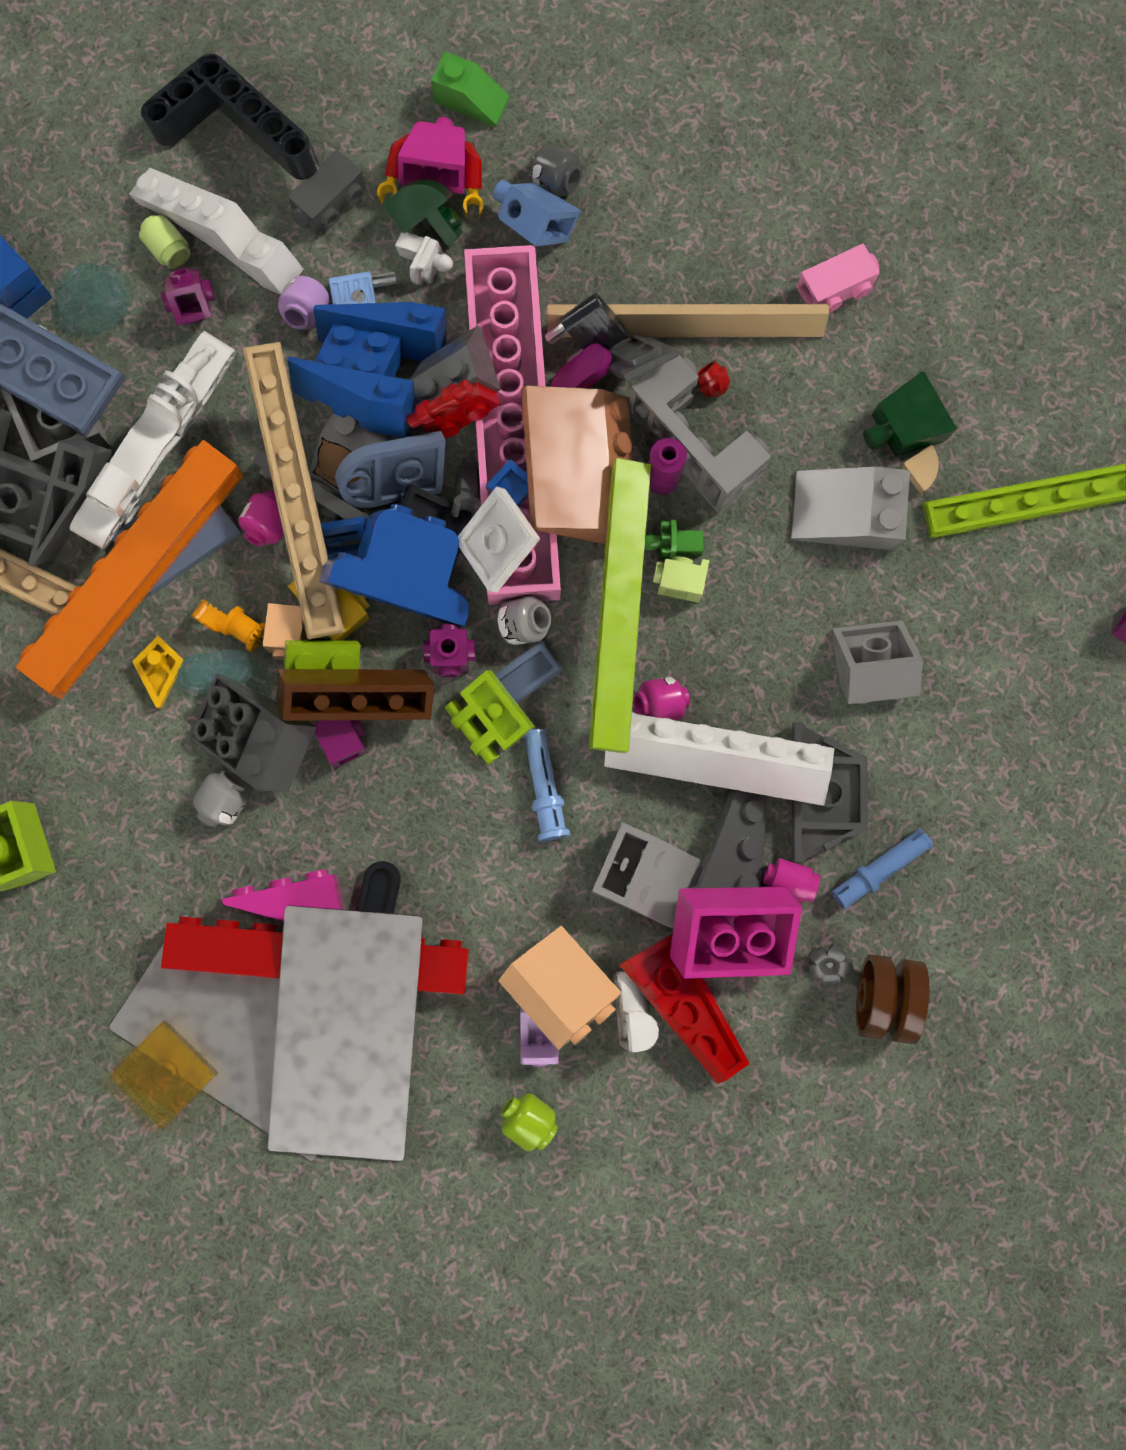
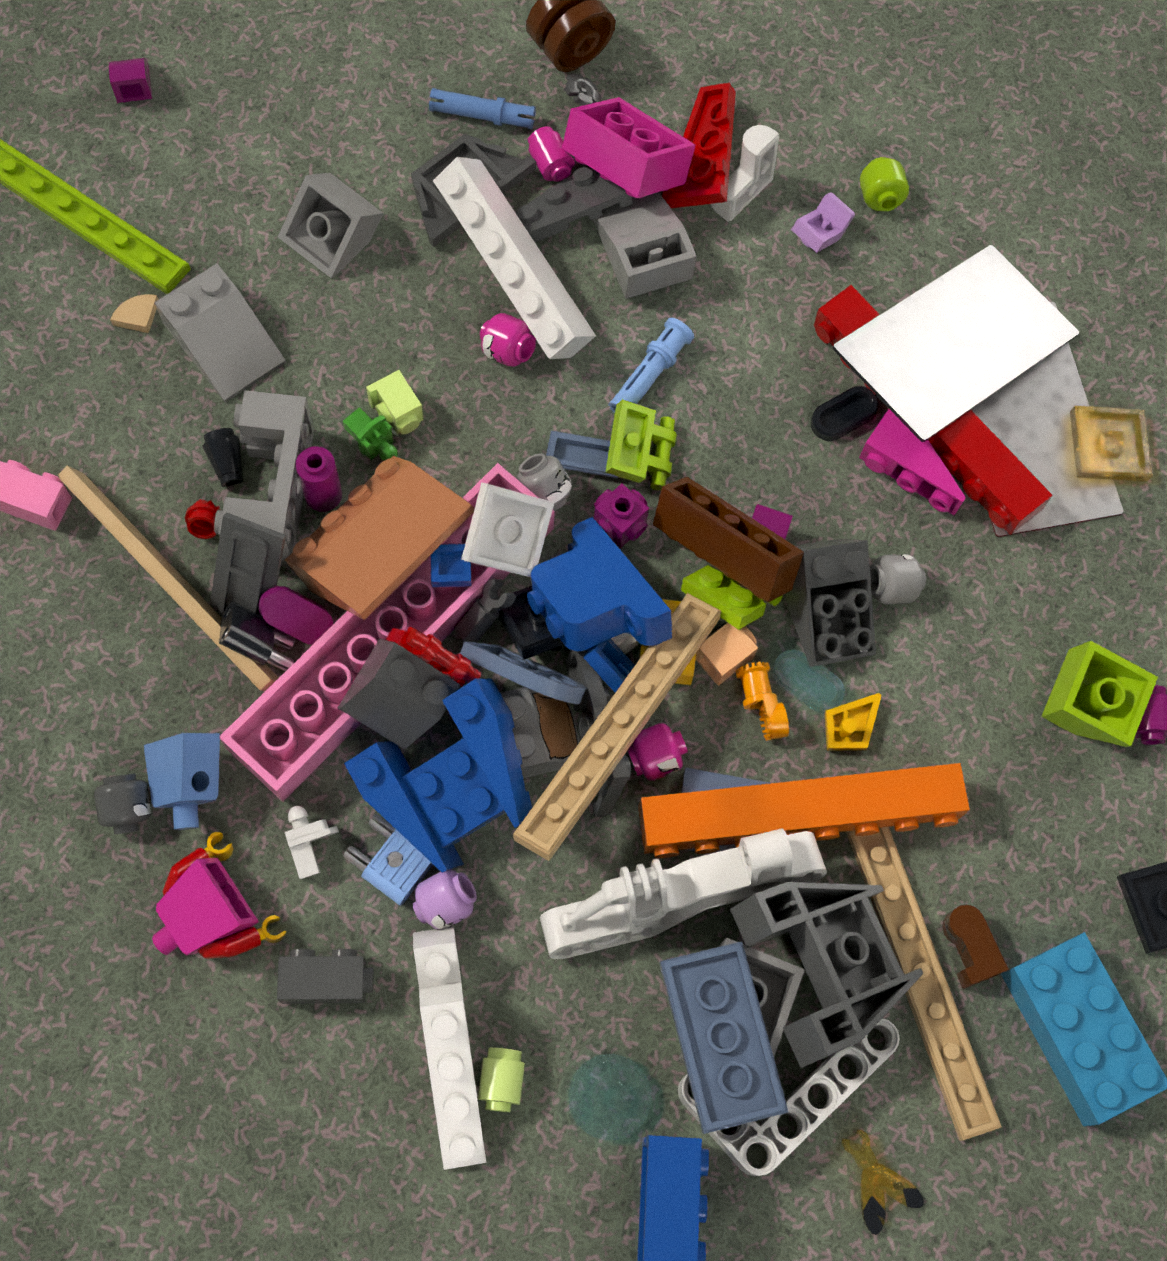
camera: 135 degrees left, 10 degrees down
(191, 307) = (534, 999): magenta brick -> none
(215, 85) = (316, 1128): black beam -> none
(421, 200) = (261, 878): dark green brick -> none
(468, 90) = (108, 950): bright green slope -> none
(560, 988) = (781, 227): light nougat brick -> none
(620, 607) = (467, 404): lime tile -> none
(736, 424) = (224, 455): none -> black cone
(910, 418) = (102, 348): dark green torso -> none

